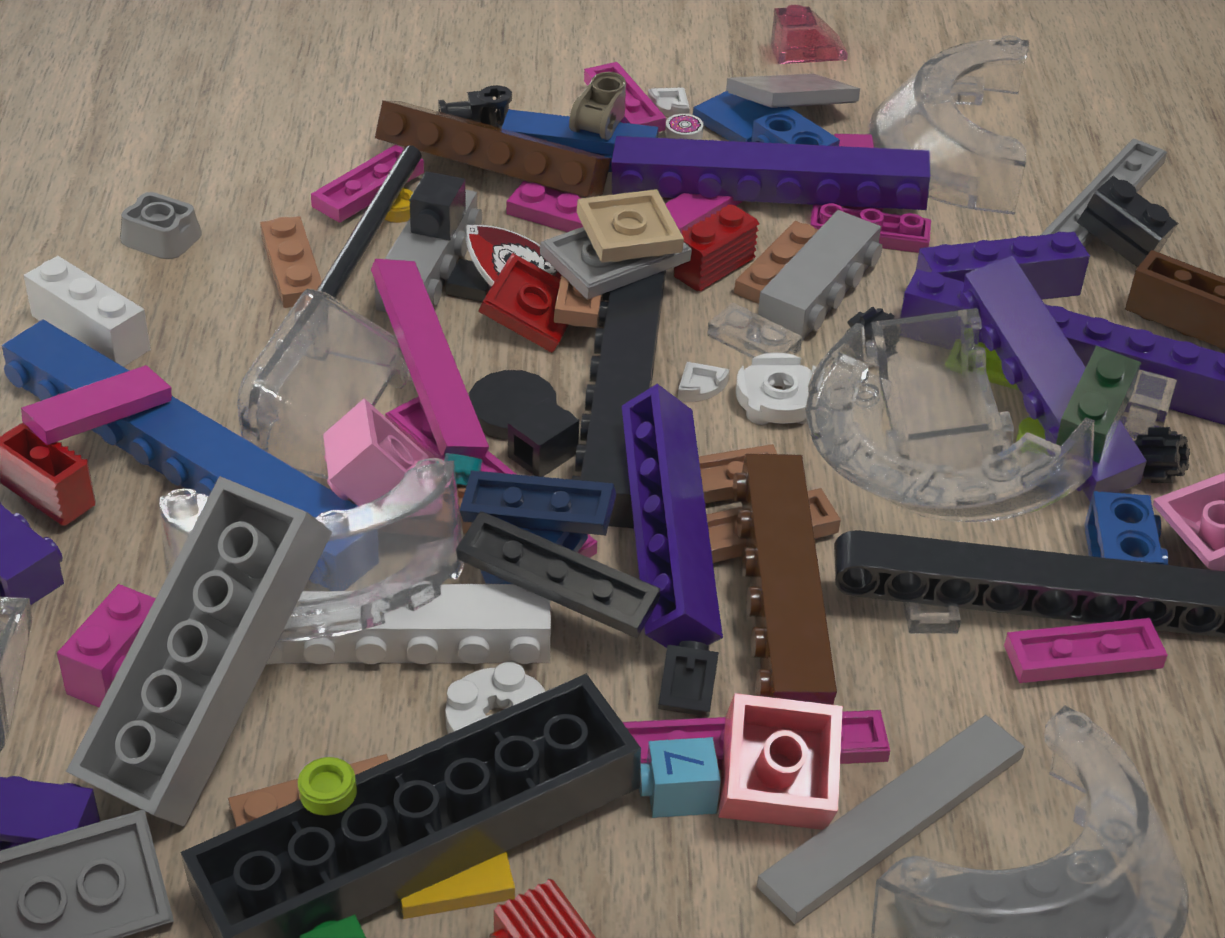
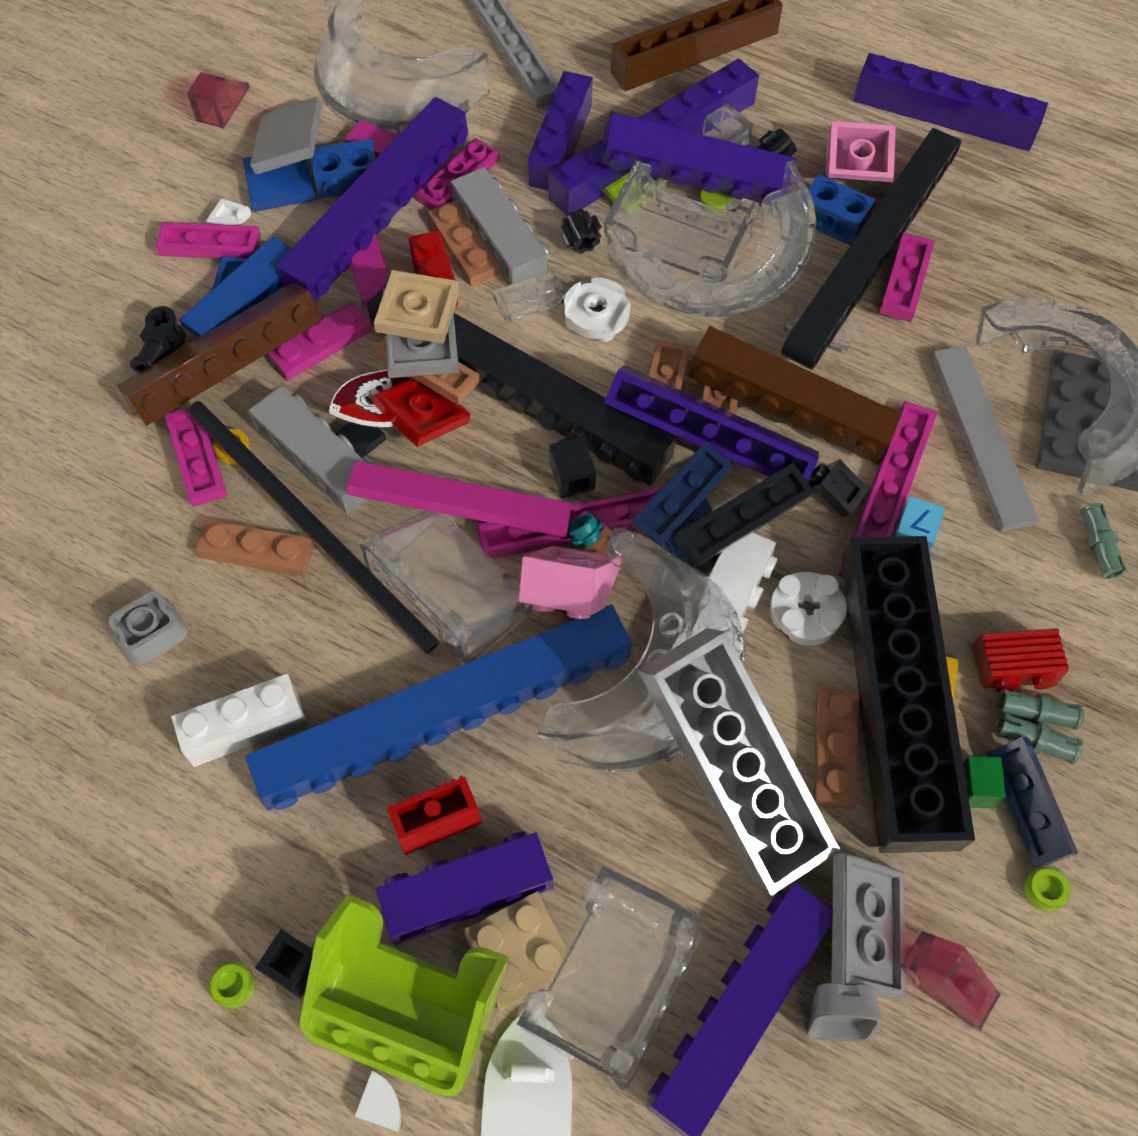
camera: 60 degrees left, 20 degrees up
(96, 404) = (399, 748): dark pink tile -> none
(101, 644) = (647, 825): dark pink brick -> none
(327, 786) = (882, 729): lime tile -> none
(437, 205) = (299, 416): black brick -> none
(505, 396) = (517, 467): black tile -> none
(600, 105) = (238, 256): dark tan piece -> none
(684, 127) = (270, 222): tile -> none
(701, 382) = (557, 350): white tile -> none
(781, 762) = (944, 468): coral brick -> none
(1100, 397) = (759, 150): dark green brick -> none
(1127, 220) = (560, 39): black brick -> none

